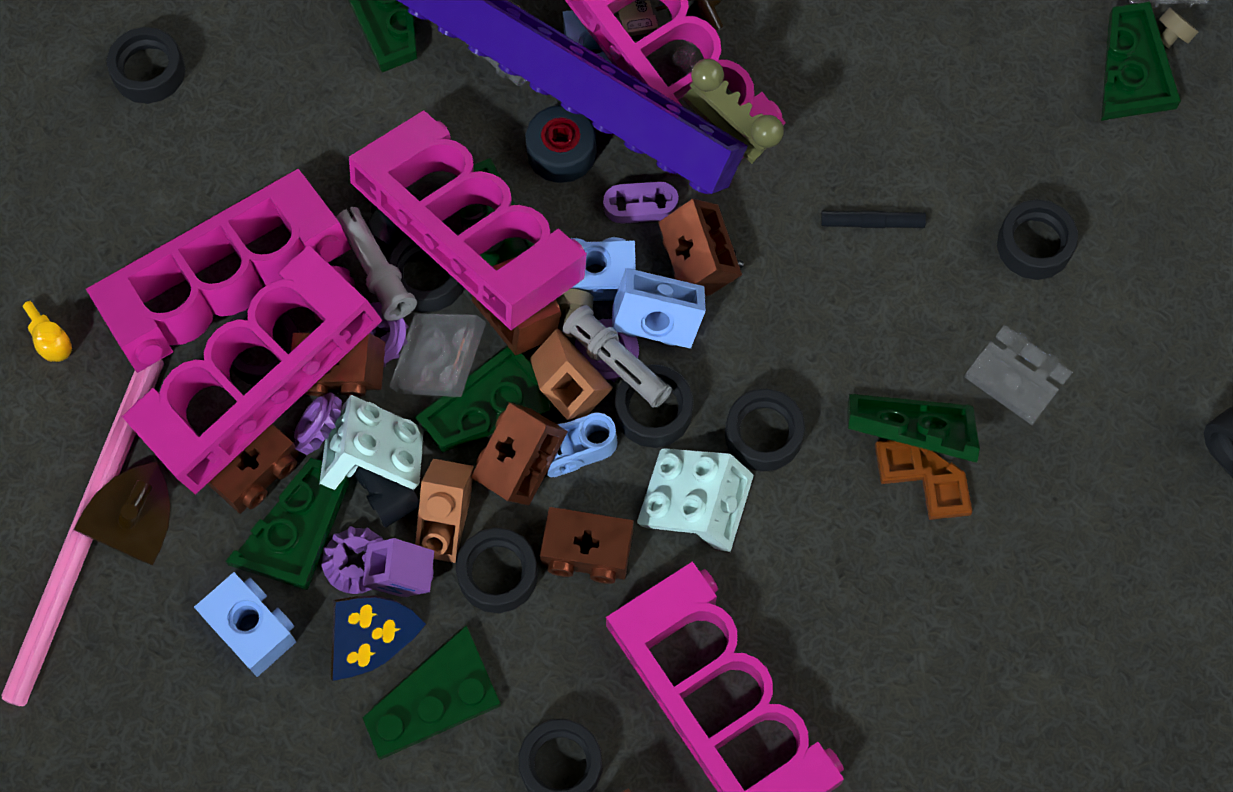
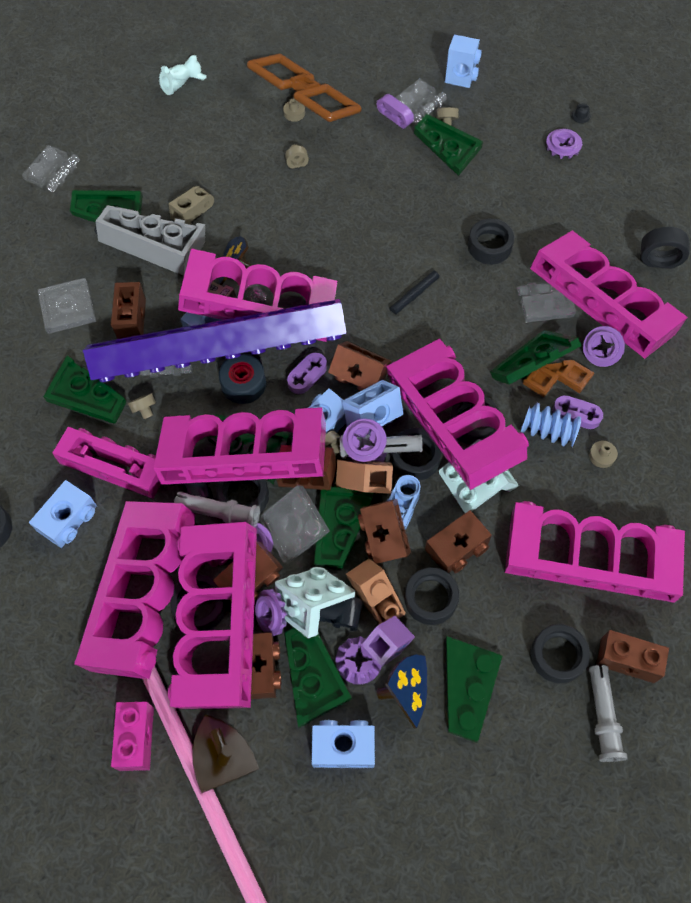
camera: 45 degrees left, 5 degrees down
(47, 336) = (77, 710): yellow piece -> none
(69, 413) = (132, 736): none -> dark pink brick
(213, 115) = (64, 500): none -> light blue brick
(311, 58) = (75, 453): none -> dark pink brick
(428, 76) = (142, 404): none -> dark tan tile
(580, 324) = (362, 428): none -> medium lavender gear
(713, 481) = (479, 461): none -> dark pink fence
(714, 105) = (302, 293): olive gear -> none
(839, 519) = (551, 424): none -> light blue piece
(867, 620) = (603, 454): none -> dark tan tile
(904, 532) = (579, 408): none -> medium lavender beam
(1003, 500) = (594, 339): none -> medium lavender gear
(1122, 344) = (571, 251): none -> dark pink fence

